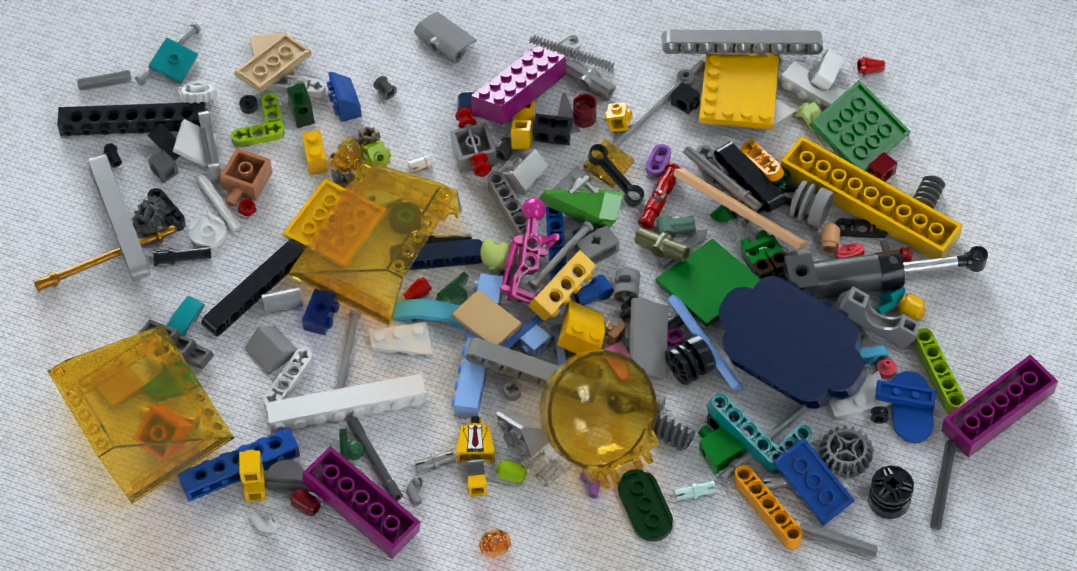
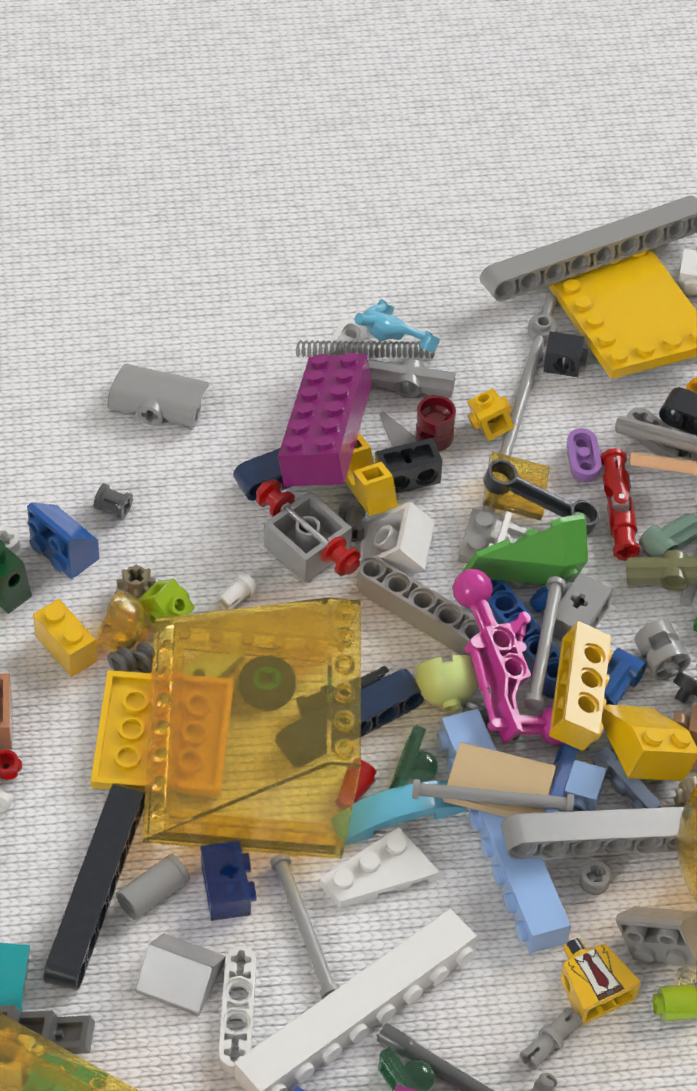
camera: 30 degrees left, 5 degrees down
(476, 477) = (631, 1035): leg -> none
(512, 344) = (492, 796): none -> light grey bar
(593, 44) = (387, 326): none -> medium azure piece

